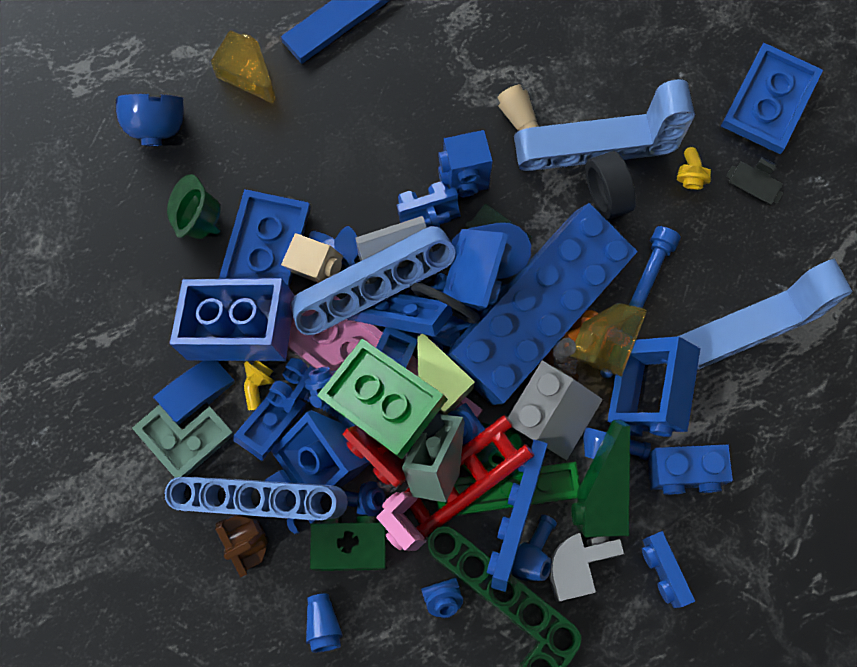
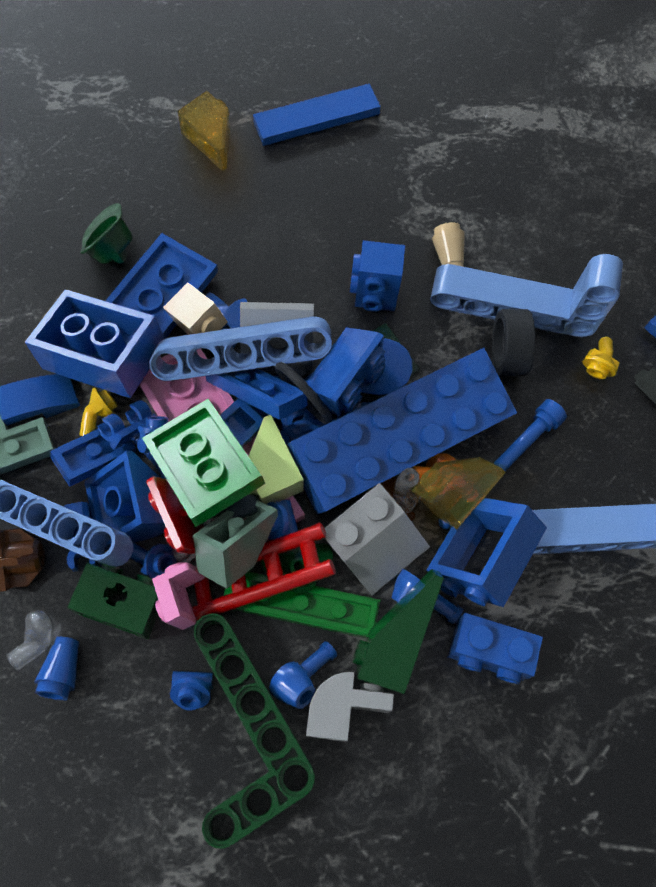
camera: 15 degrees right, 5 degrees down
(150, 117) = (103, 142): blue cylinder -> none
(290, 607) = (36, 639): none -> clear arm
(436, 208) = (336, 308): blue hips -> none
(512, 528) = (285, 641): blue plate -> none
(672, 584) = (433, 765): blue plate -> none

